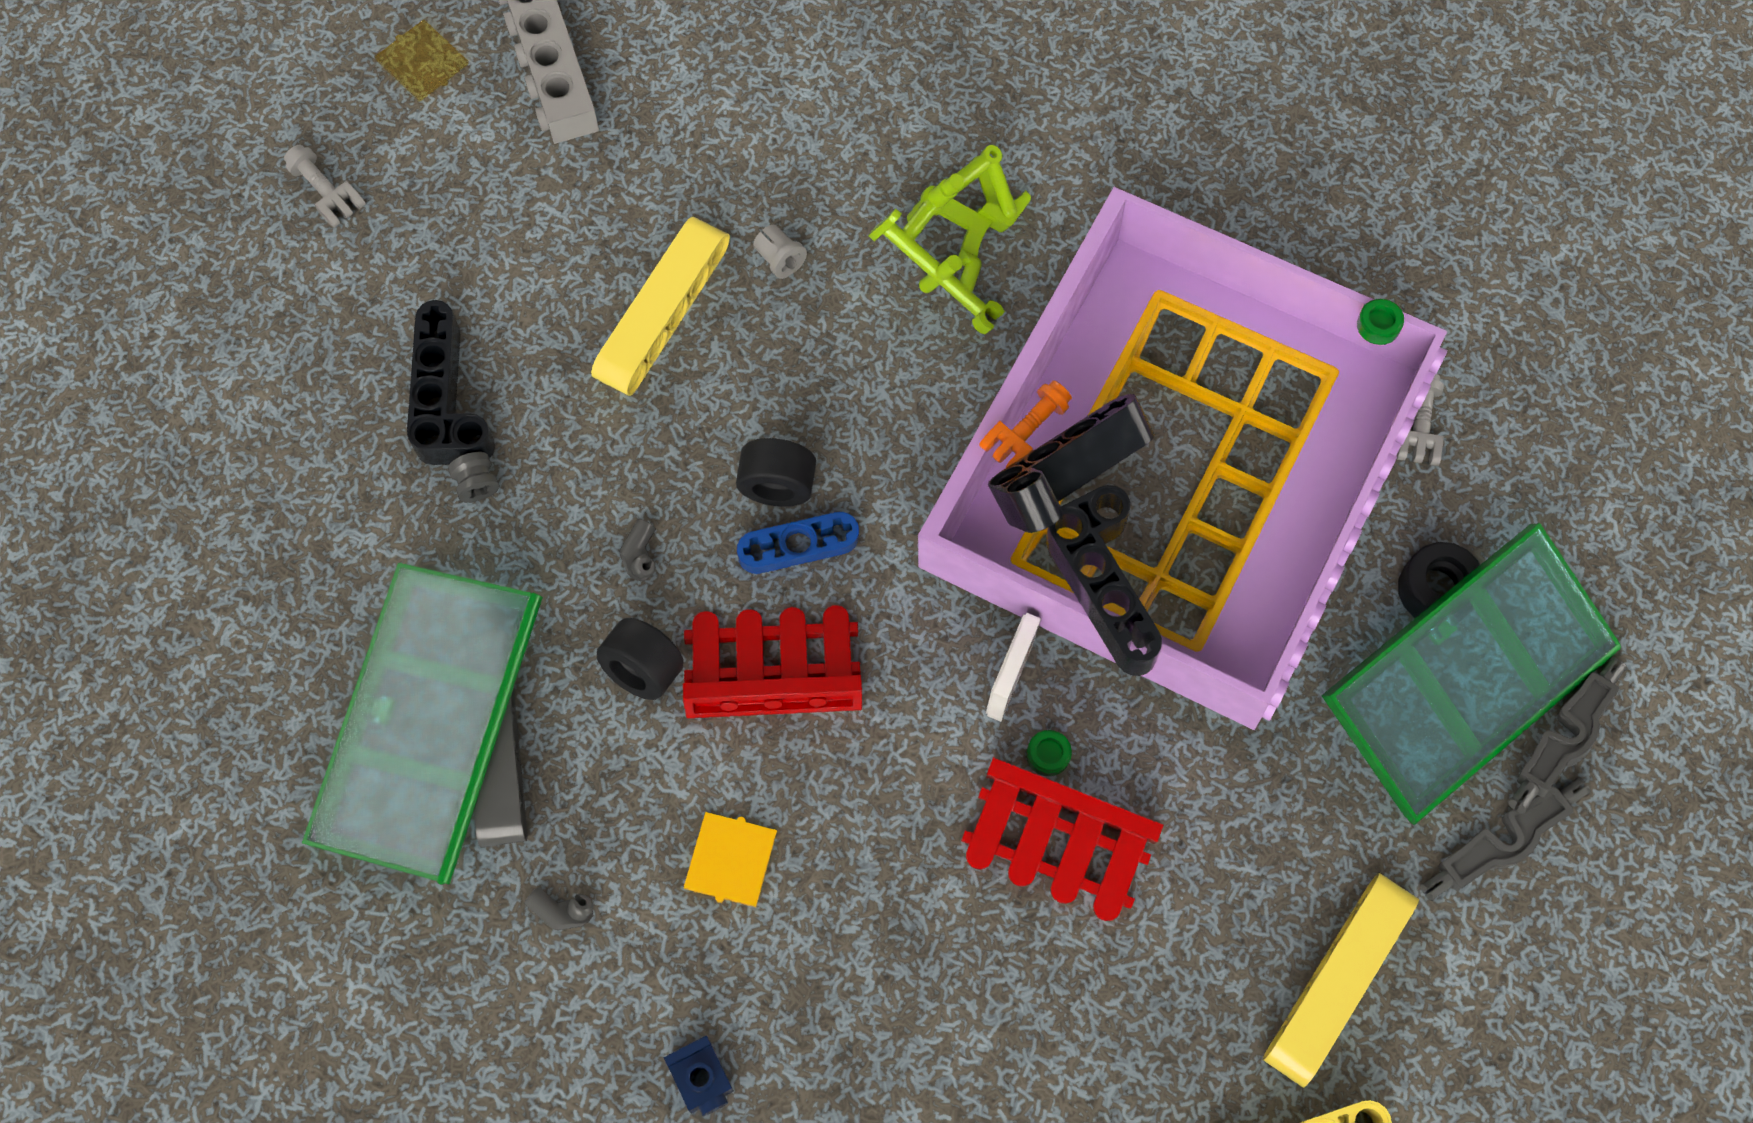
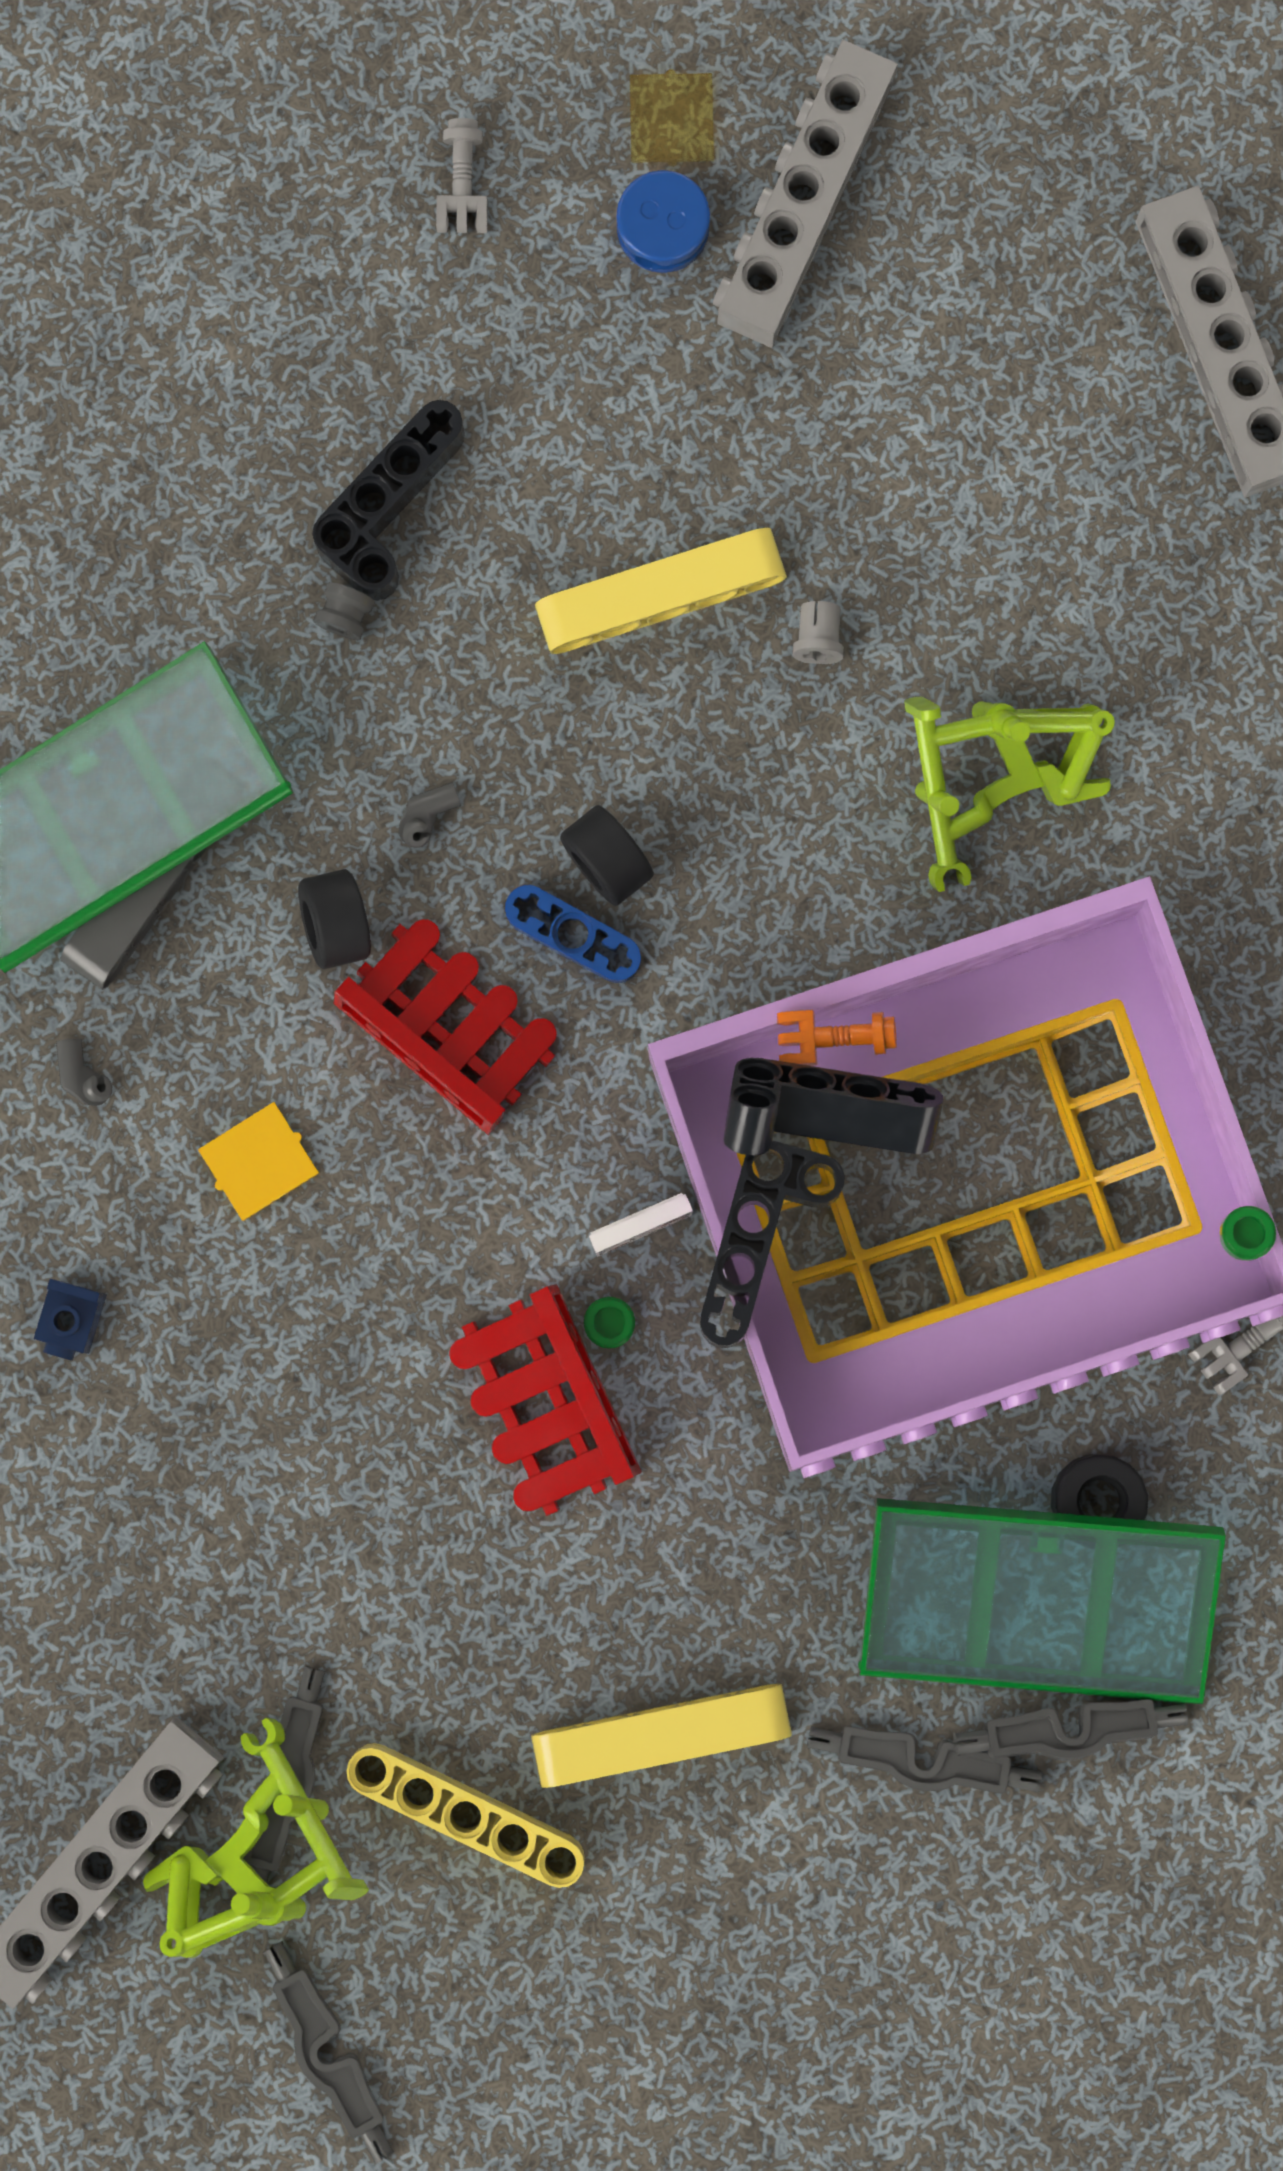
camera: 45 degrees right, 15 degrees up
(468, 111) = (663, 221): none -> blue head

